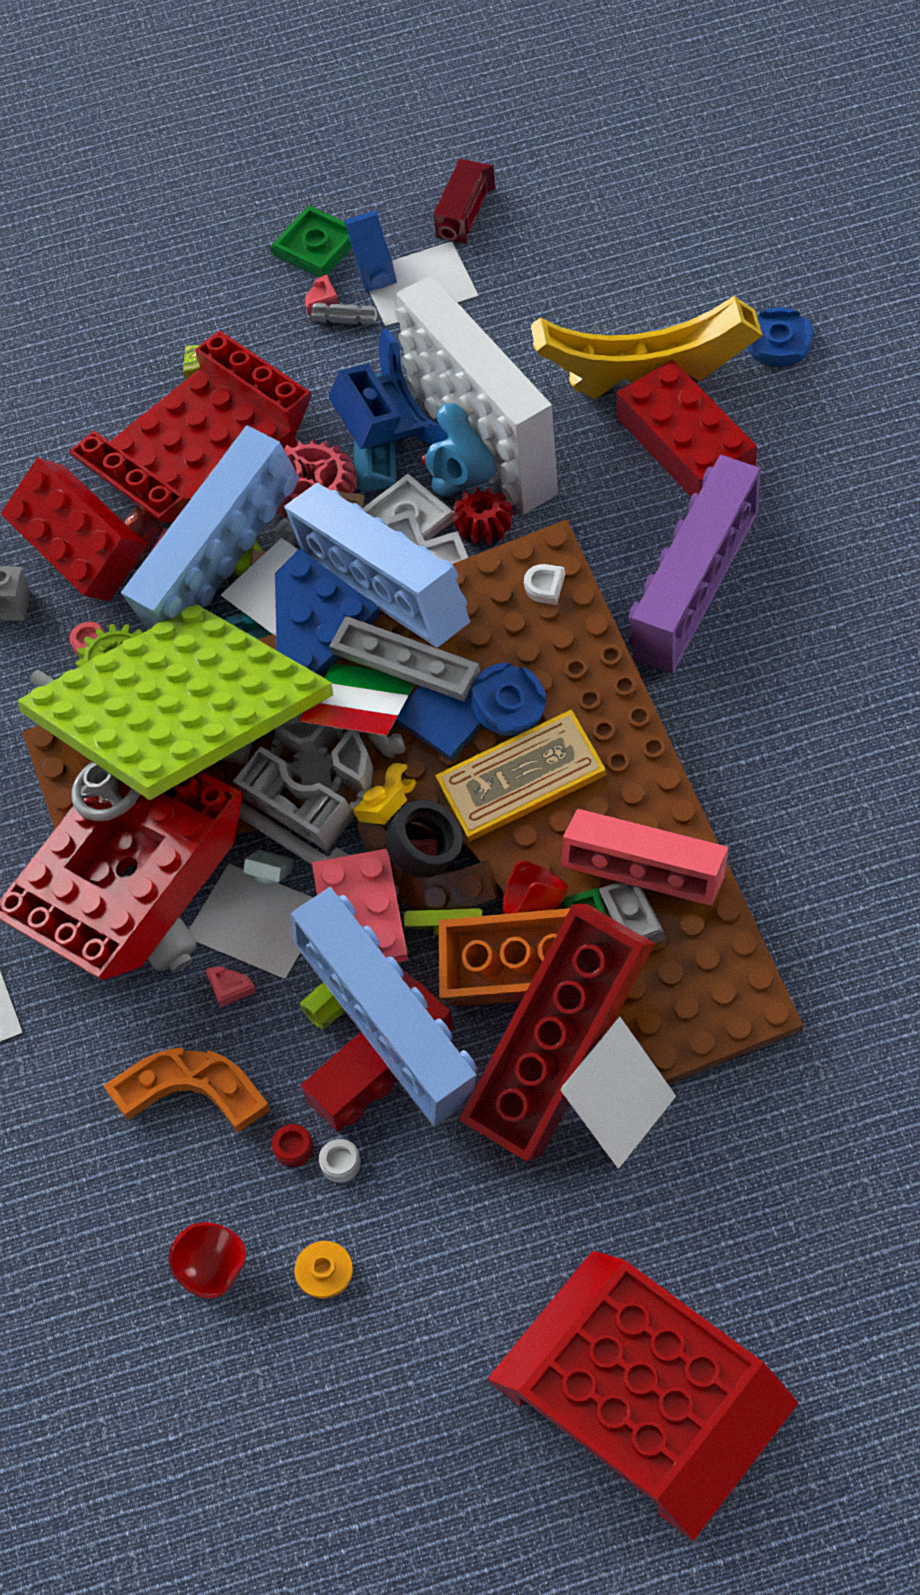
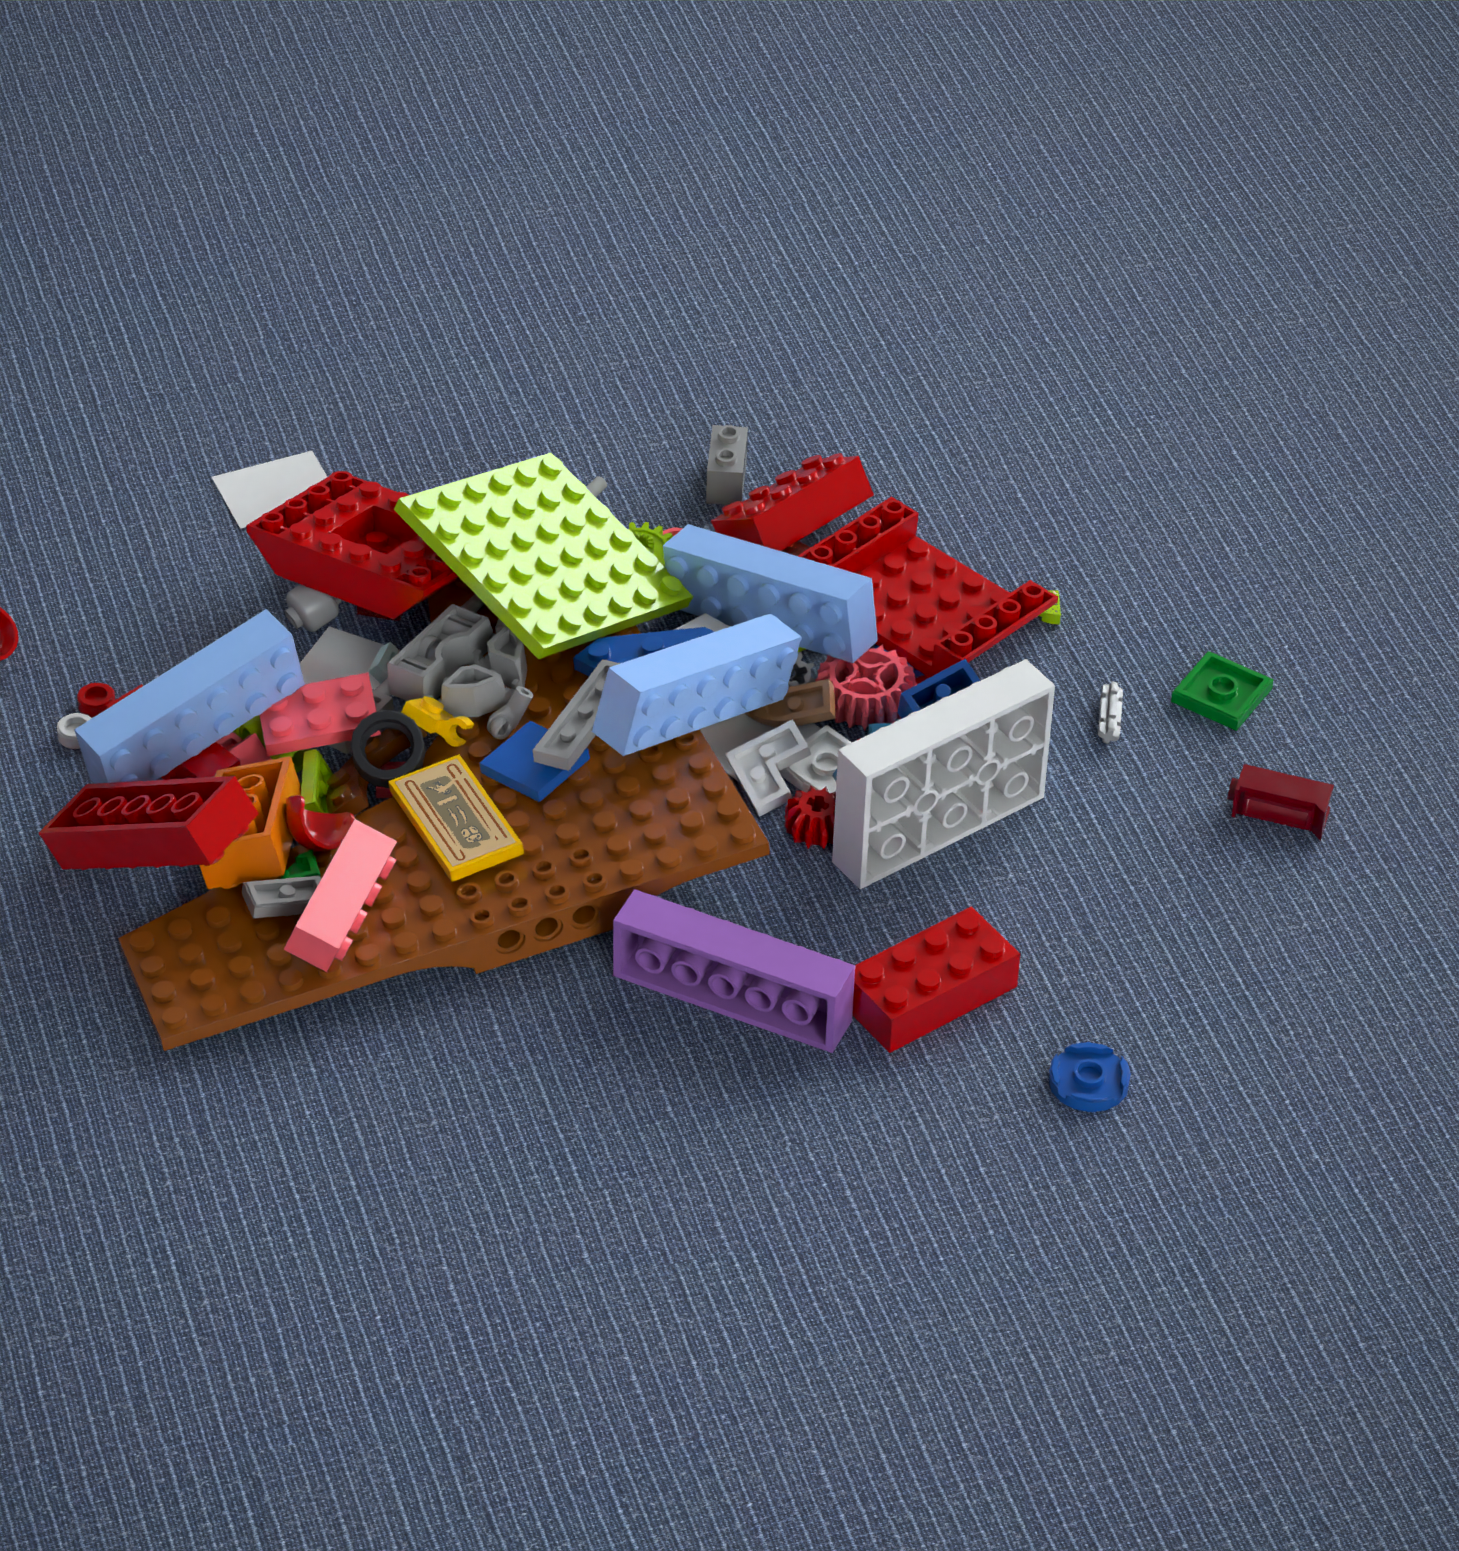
camera: 80 degrees right, 15 degrees down
(188, 1071) = (174, 635): orange plate -> none
(322, 293) = (1142, 698): coral tile -> none
(361, 700) = (528, 683): sticker -> none
(370, 251) = (1183, 717): blue slope -> none
(438, 261) = (1167, 777): white sticker -> none
(507, 699) = (537, 796): blue tile -> none
(544, 583) = (679, 821): white tile -> none
(604, 360) = (1049, 981): yellow arch -> none
(618, 1092) = (94, 889): white sticker -> none

